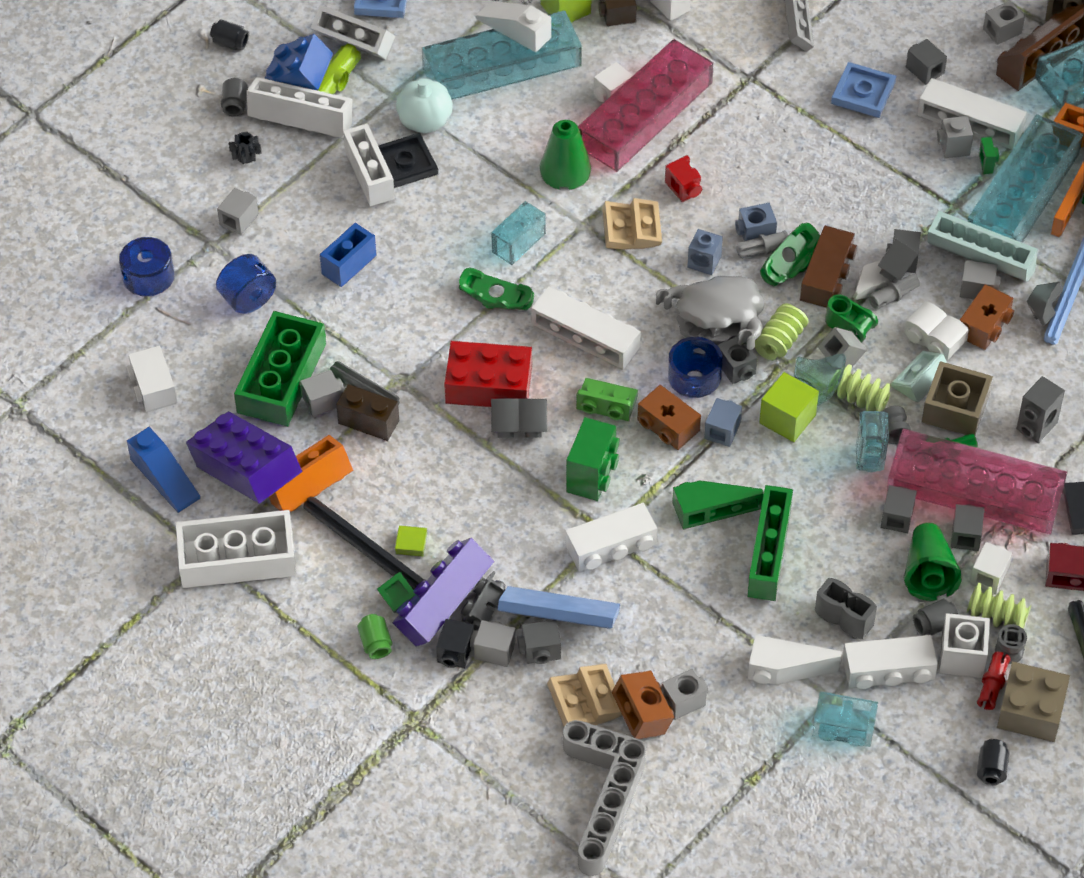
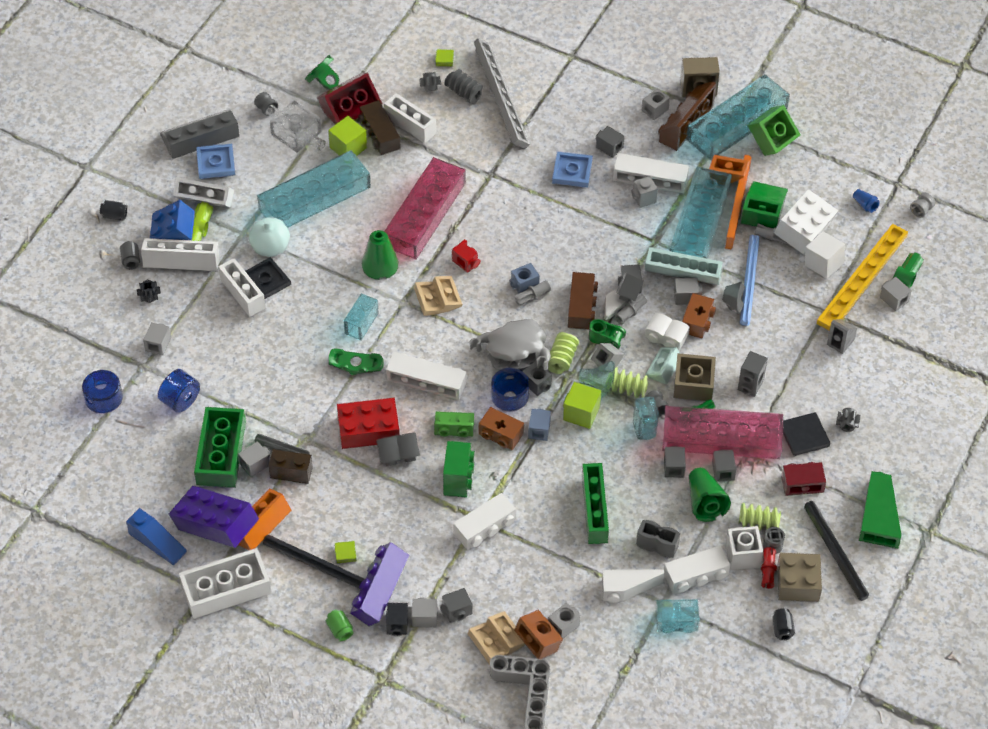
camera: 15 degrees left, 0 degrees up
(152, 379) = (129, 472): white brick -> none
(348, 254) = (245, 355): blue brick -> none
(396, 591) = (346, 590): green plate -> none
(486, 592) = (408, 577): dark grey hinge -> none
(519, 22) = (322, 165): white slope -> none
(559, 607) = (463, 578): medium blue tile -> none
(609, 81) = (396, 195): white brick -> none
(705, 252) = (494, 306): sand blue brick -> none
(711, 501) = (546, 482): green slope -> none
(802, 242) = (560, 287): green piece -> none
(931, 618) = (717, 532): dark grey brick -> none
(988, 155) = (669, 200): green plate -> none
(991, 567) = (747, 489): white brick -> none

